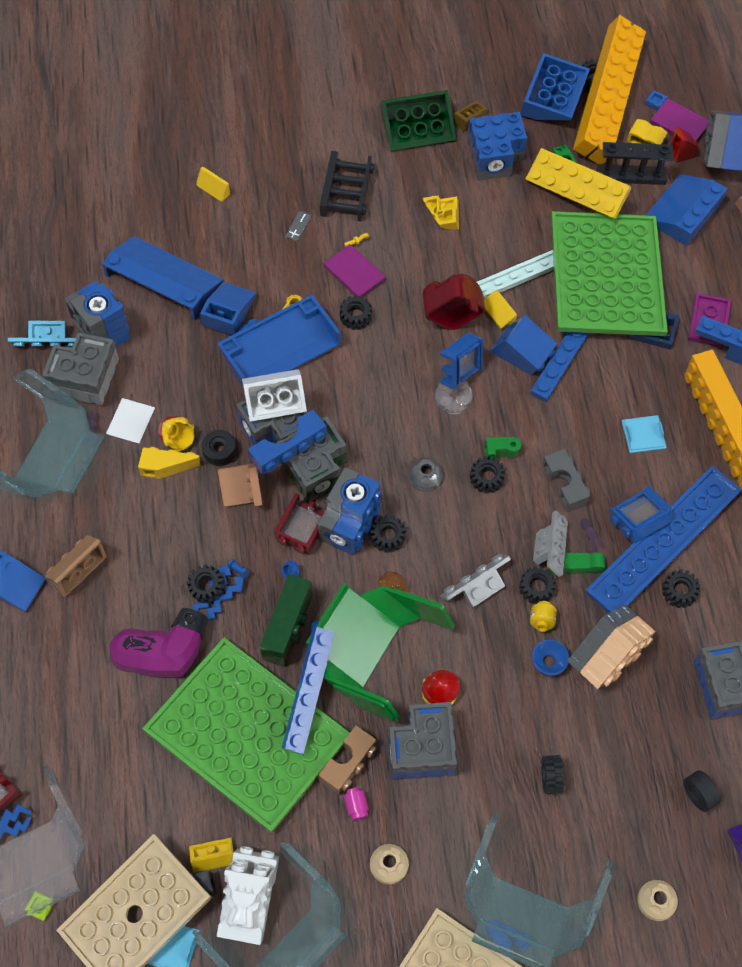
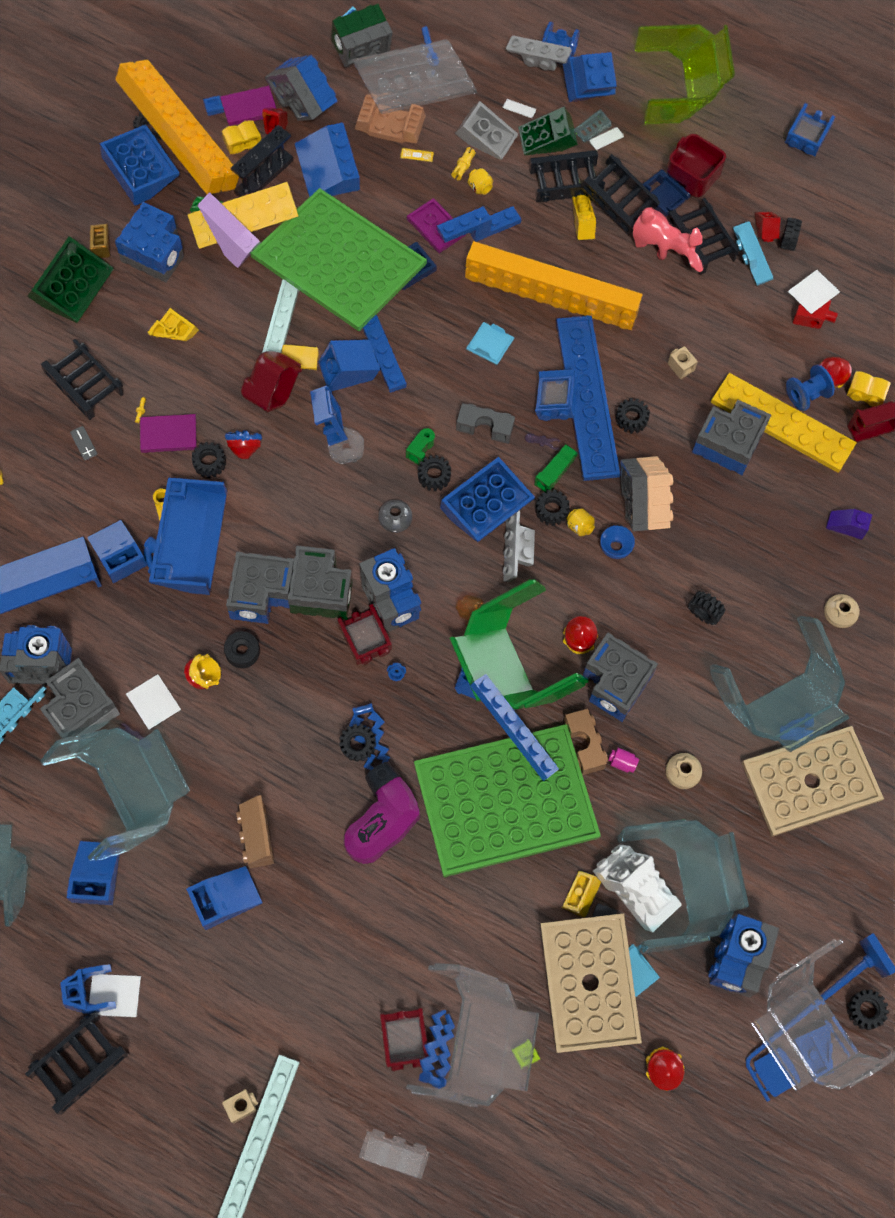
camera: 55 degrees left, 5 degrees up
(163, 463) = (219, 702): yellow slope -> none
(240, 485) = (294, 654): nougat bracket -> none
(269, 455) = (297, 612): blue arch -> none
(274, 395) = (246, 569): white slope -> none
(286, 620) = (440, 703): dark green brick -> none
(388, 324) = (243, 444): none -> red hair
(388, 544) = (428, 569): black tyre -> none
(495, 527) = (486, 500): none -> blue slope
(551, 544) = (532, 473): light grey bracket -> none
(555, 183) = (228, 231): none -> lavender wedge
(702, 791) = (792, 520): black tyre -> none

